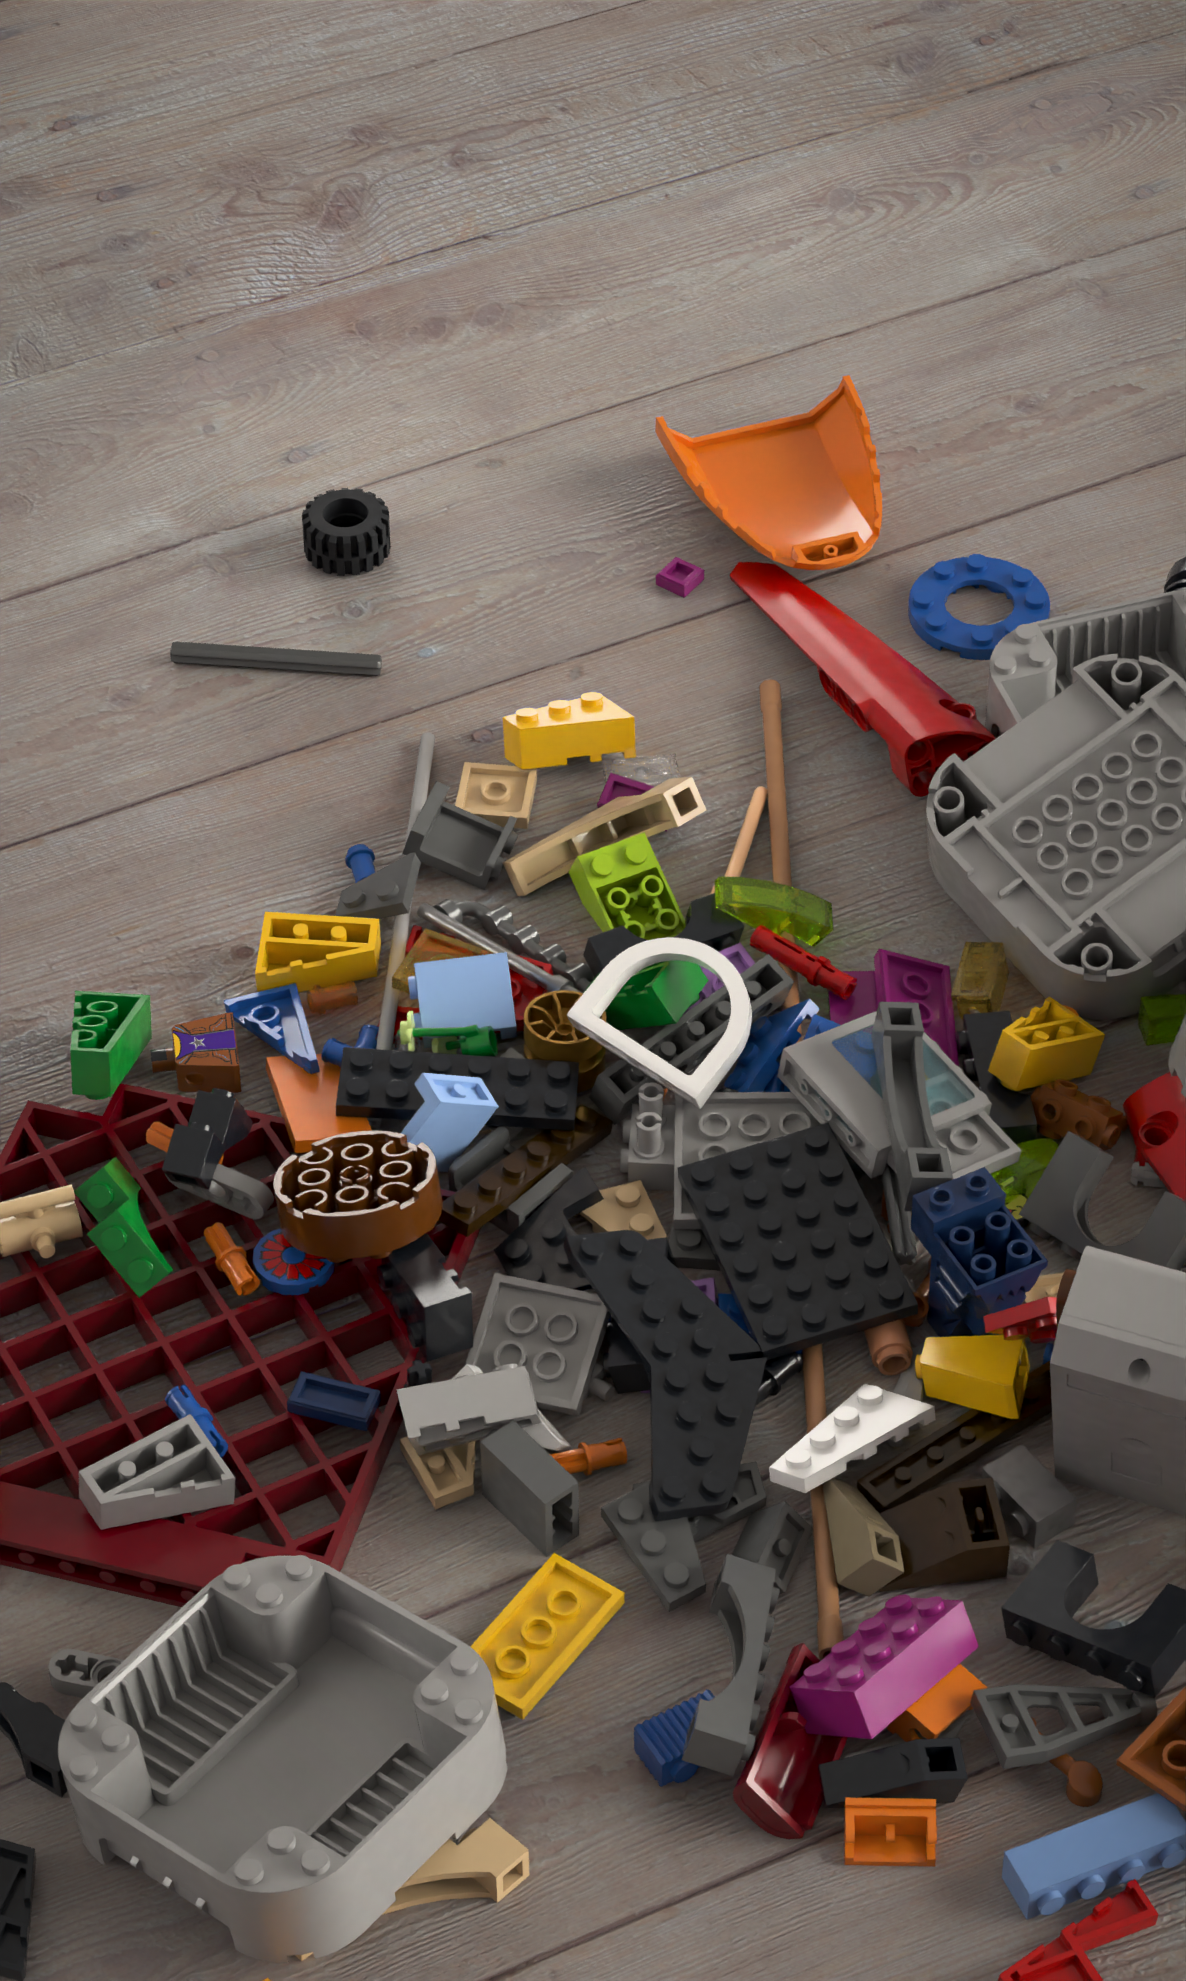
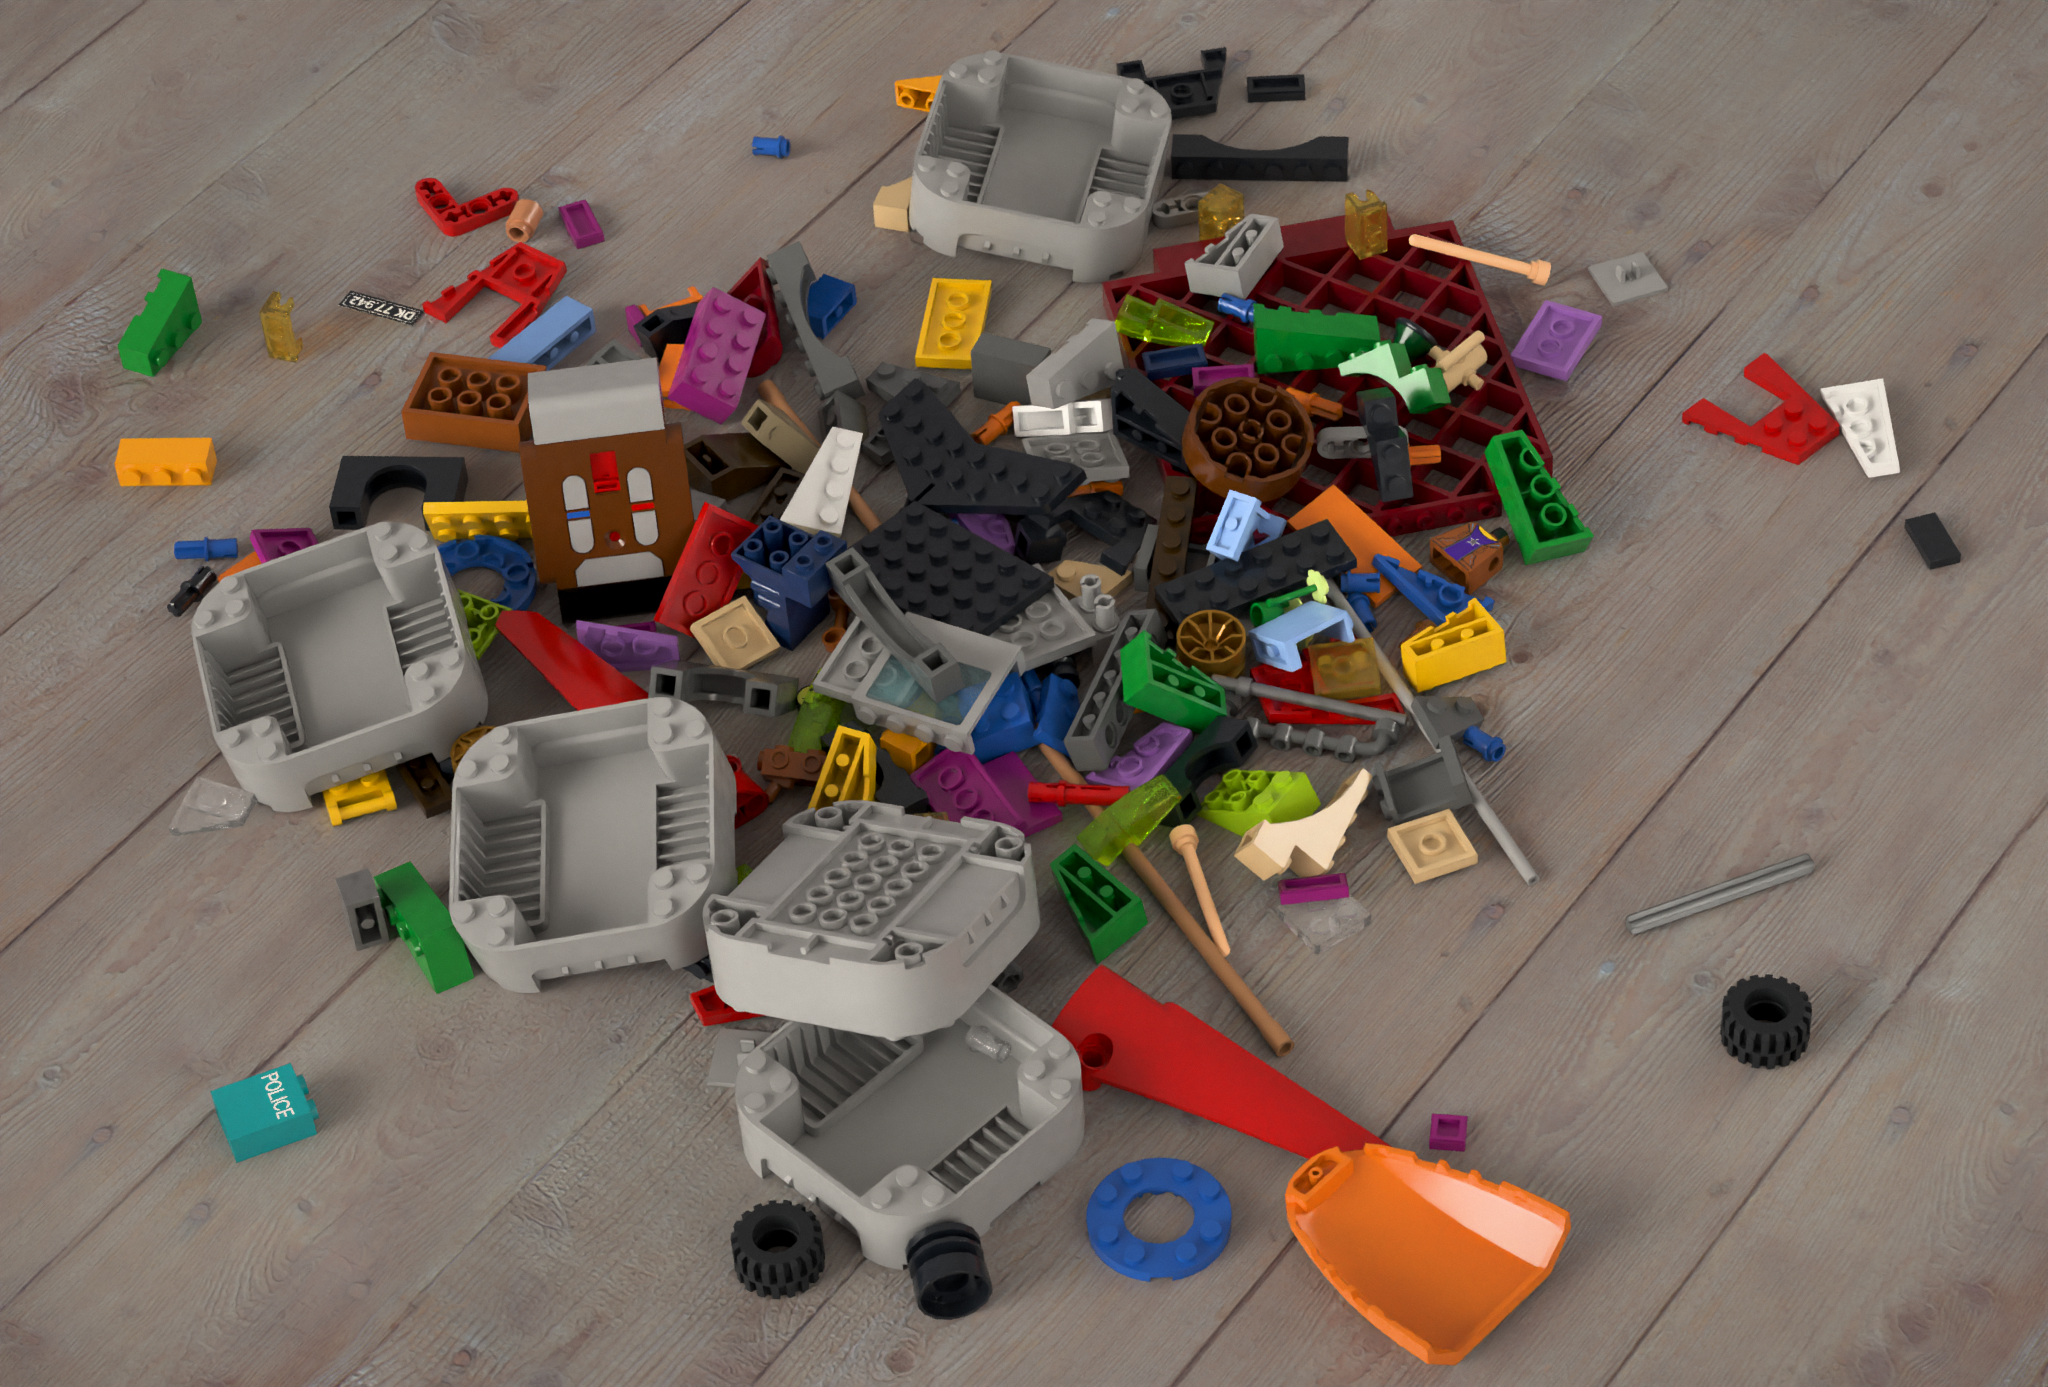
camera: 155 degrees right, 0 degrees up
(58, 1276) = (1416, 339): none -> dark green hat
(110, 1595) = (1219, 211): none -> clear yellow brick
(168, 1323) = (1309, 340): none -> green wedge
(297, 1348) = (1207, 376): none -> magenta tile
(314, 1448) = (1161, 323): none -> clear neon green slope
(568, 730) = (1403, 899): yellow wedge -> none
(594, 1001) = (1170, 612): white window -> none
(857, 854) = (1097, 901): none -> green wedge
(948, 1826) = (633, 316): none -> magenta tile

